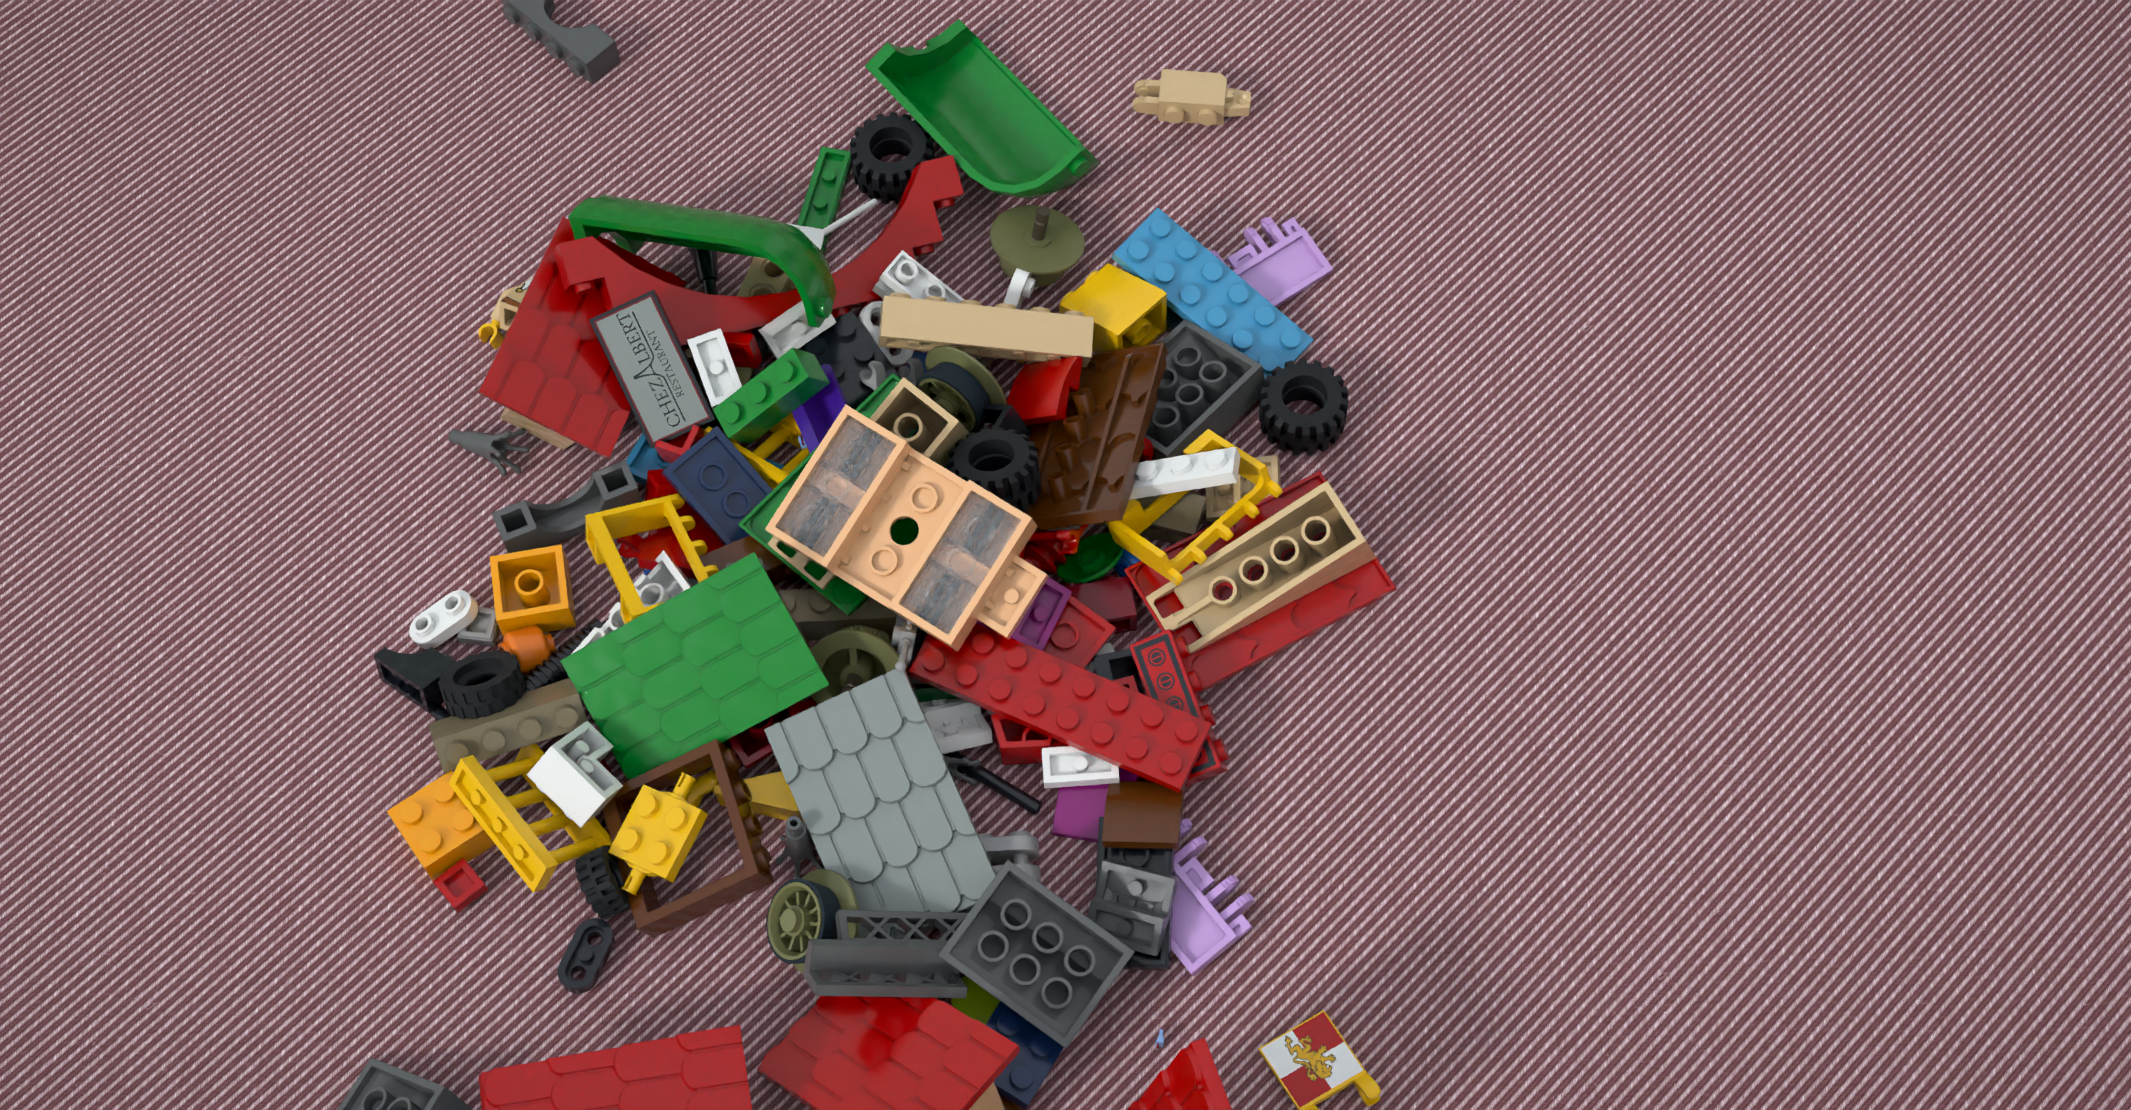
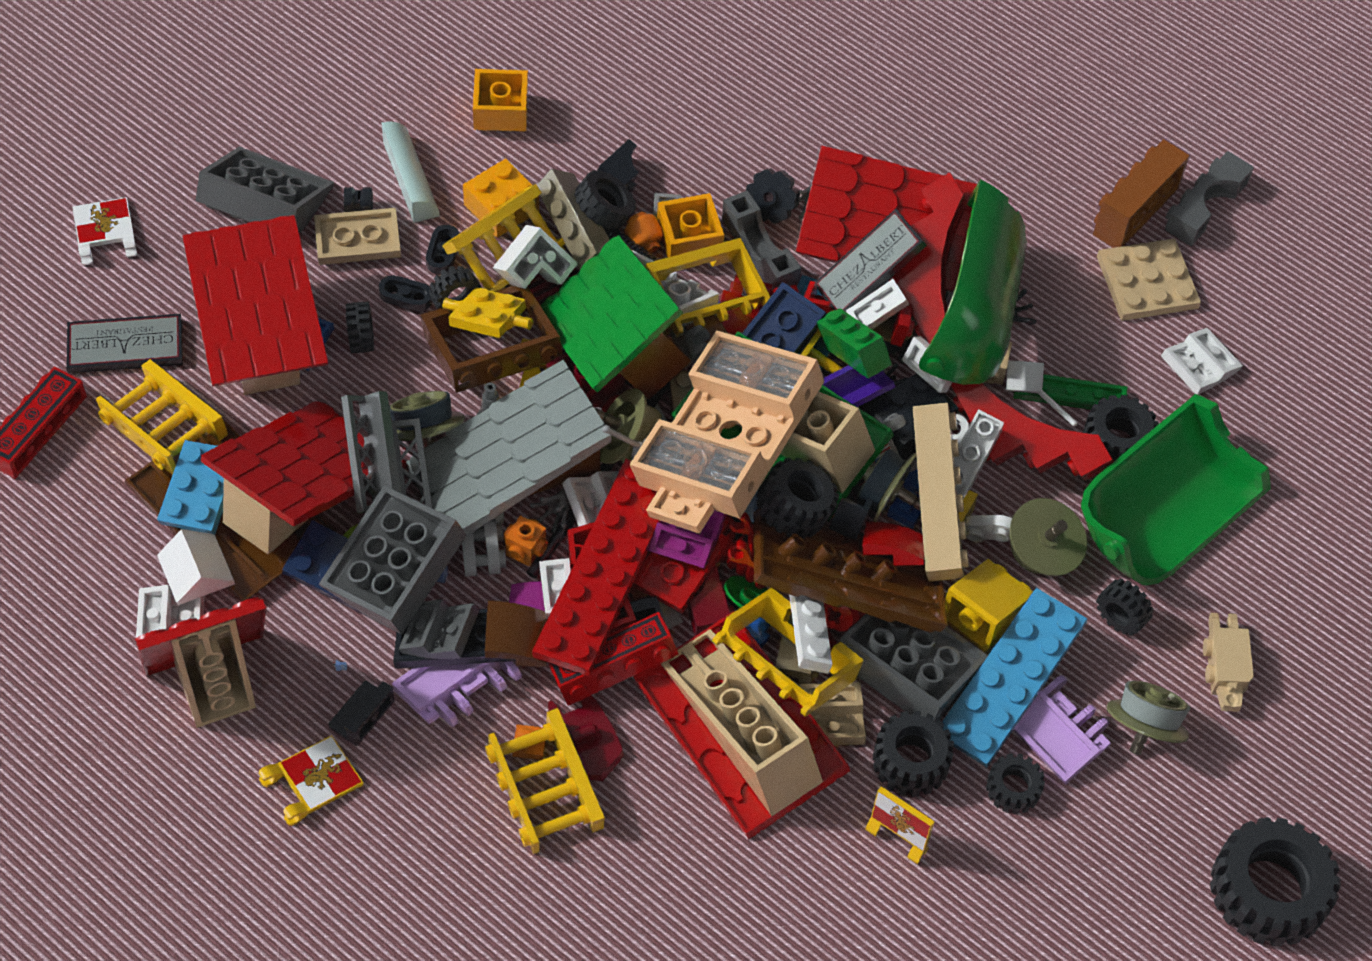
camera: 80 degrees right, 5 degrees down
(270, 821) = (500, 100): none -> light orange brick
(374, 952) = (409, 172): none -> light aqua brick
(417, 1018) = (352, 198): none -> black wheel
(443, 619) = (666, 181): white plate -> none
(460, 885) = (458, 214): red plate -> none
(477, 1019) = (357, 236): none -> tan plate
(493, 486) = (774, 194): none -> black plant
(519, 906) = (437, 253): none -> black plate
(554, 90) = (1140, 194): none -> dark orange brick
(647, 1008) = (360, 327): none -> black tyre
(666, 108) = (1148, 279): none -> tan plate
(790, 70) = (1201, 361): none -> white slope
(1001, 817) = (525, 540): none -> orange brick
(1127, 180) = (1124, 607): none -> black tyre
(1228, 1010) = (362, 711): none -> black panel
(1266, 170) = (1151, 713): none -> piece
(1268, 753) = (592, 738): none -> dark red shield
(1273, 816) = (533, 752): none -> orange tile
(1338, 759) = (576, 784): none -> yellow fence
(1340, 299) = (1023, 769): none -> black tyre
(1400, 415) = (901, 820): none -> flag
(1465, 58) = (1296, 852): none -> black tyre

